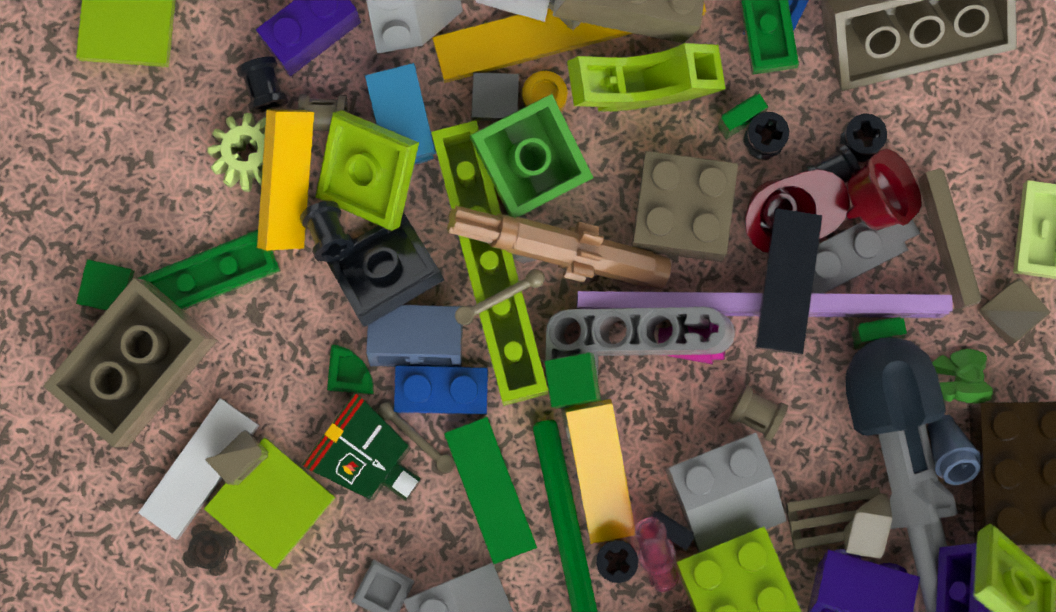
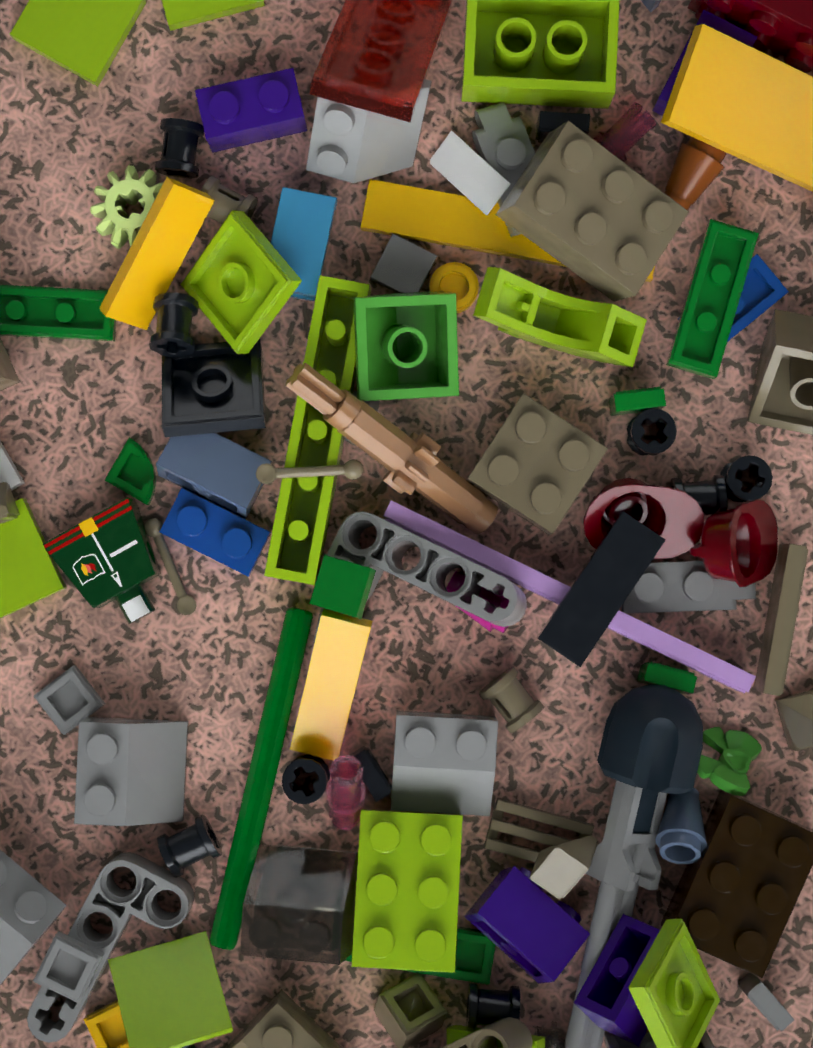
camera: 20 degrees right, 5 degrees up
(490, 490) = (217, 652): green tile -> none

